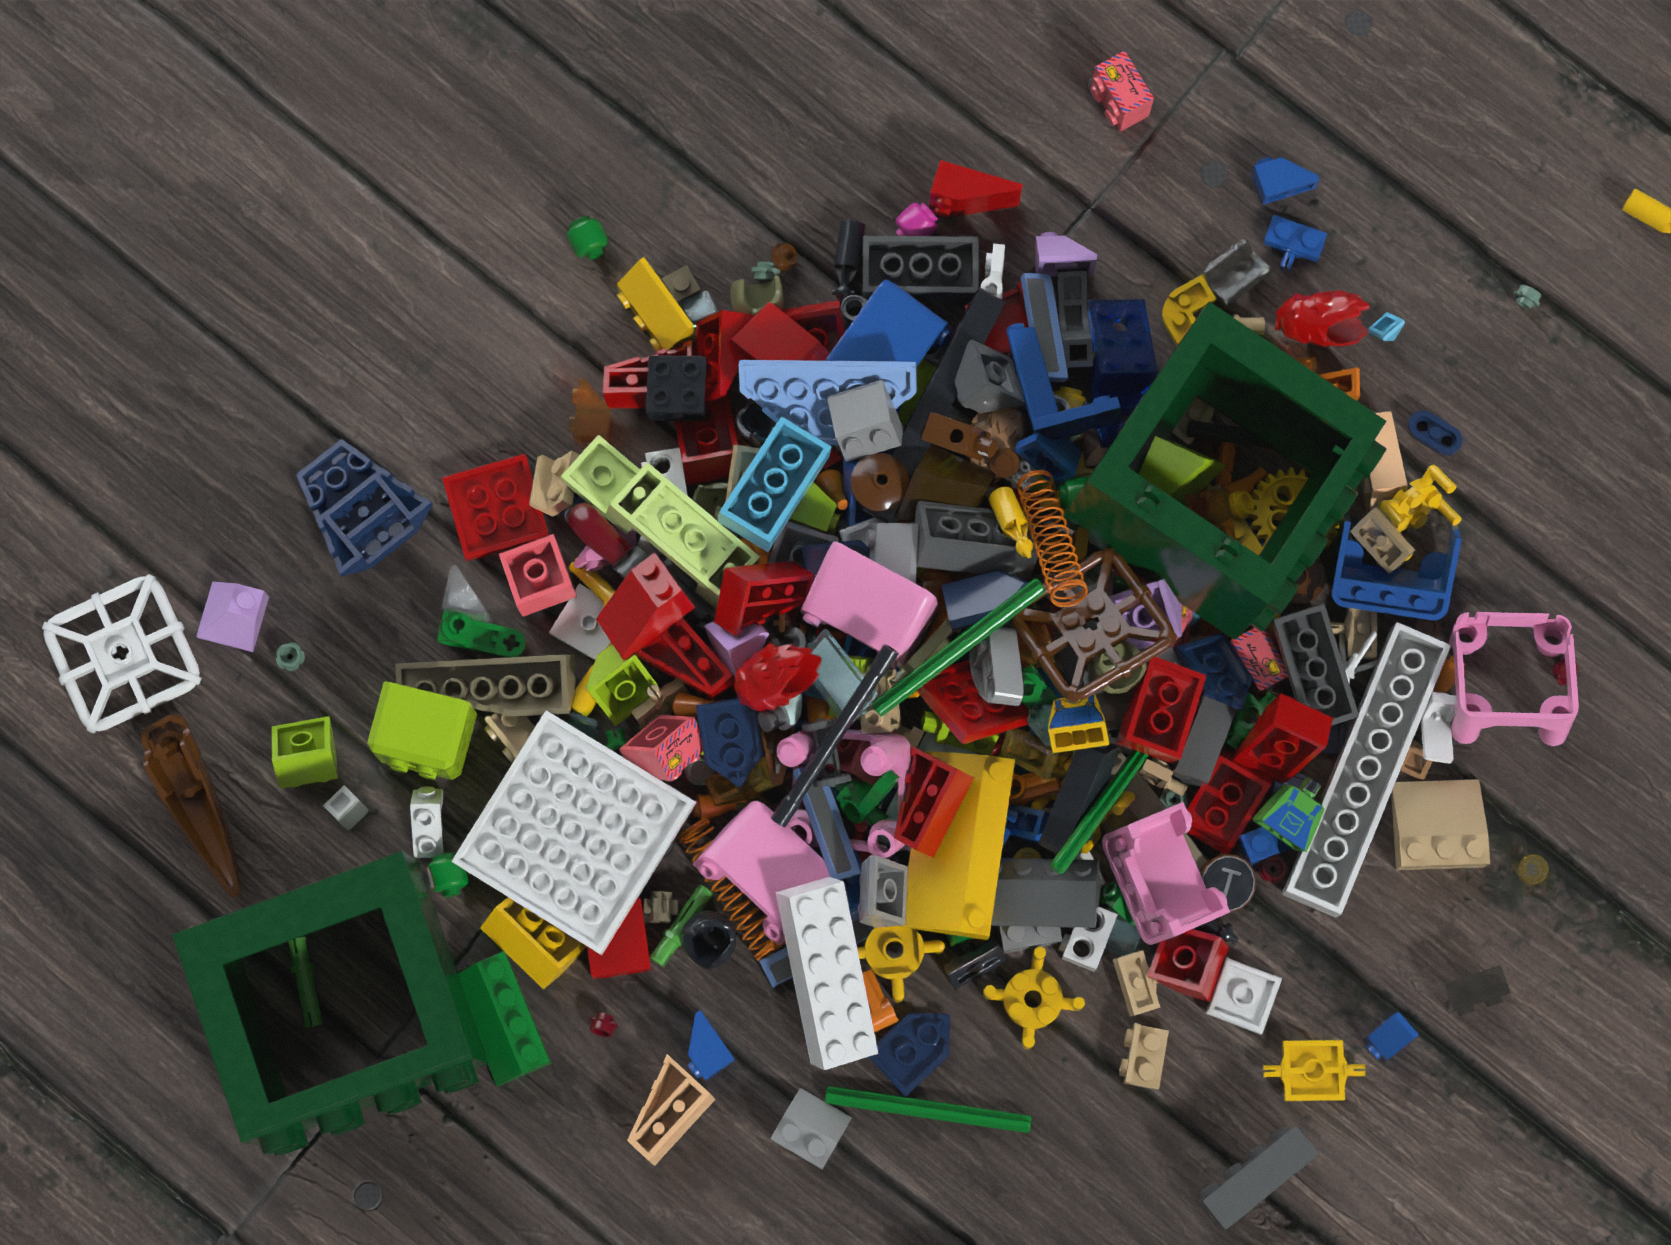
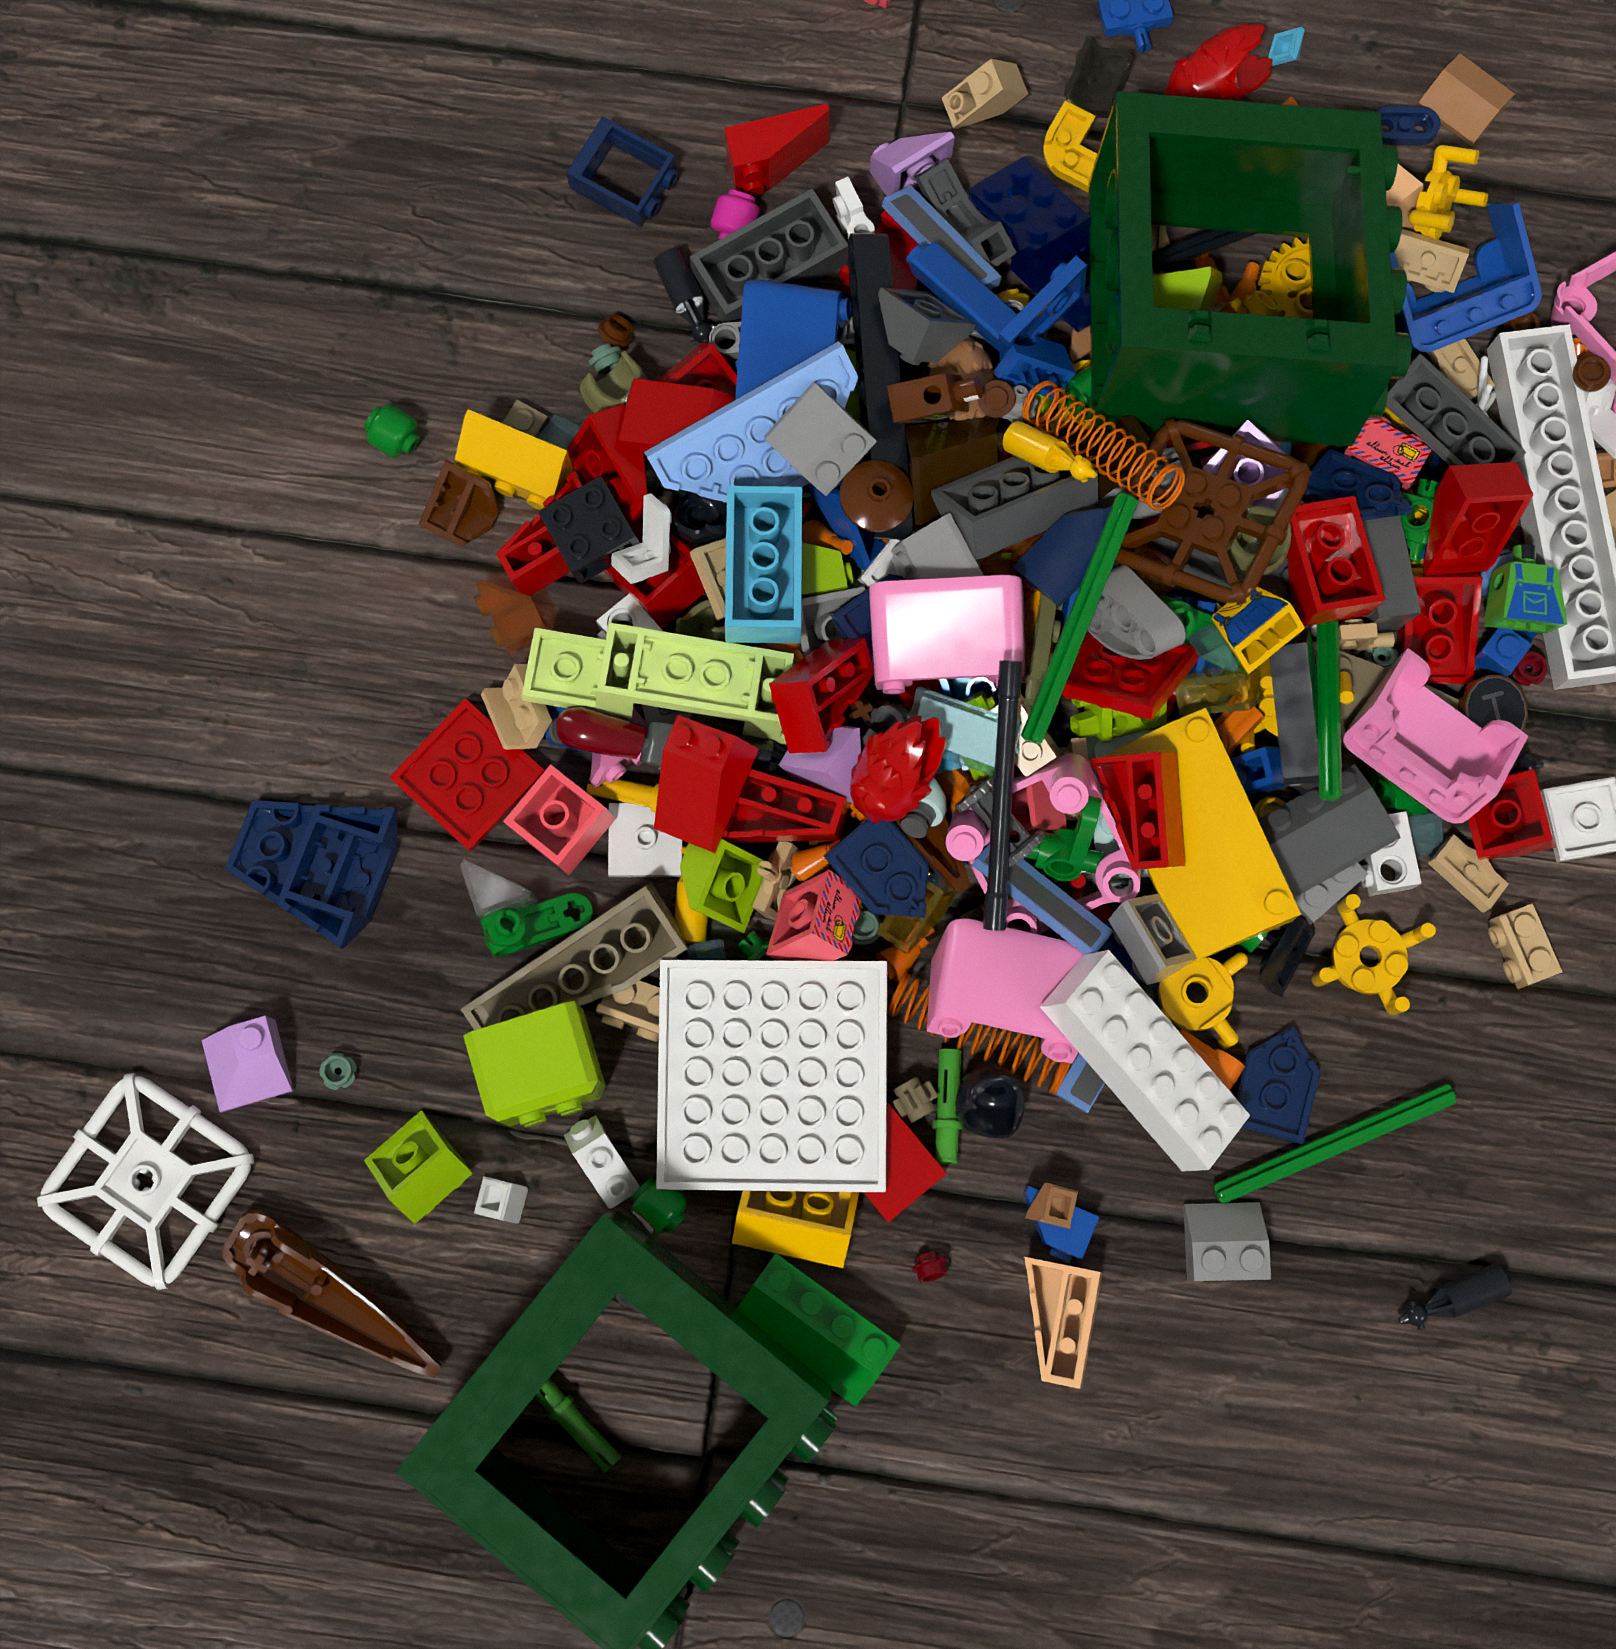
camera: 30 degrees left, 0 degrees up
(602, 317) = (460, 505): none -> reddish brown slope
(706, 431) = (651, 555): none -> white bracket
(707, 1032) = (1053, 1206): none -> medium nougat slope
(846, 120) = (594, 152): none -> dark blue window
(1148, 237) = (985, 93): none -> tan slope
(1441, 689) = (1591, 374): none -> reddish brown plate
(1494, 439) = (1466, 99): none -> medium nougat slope

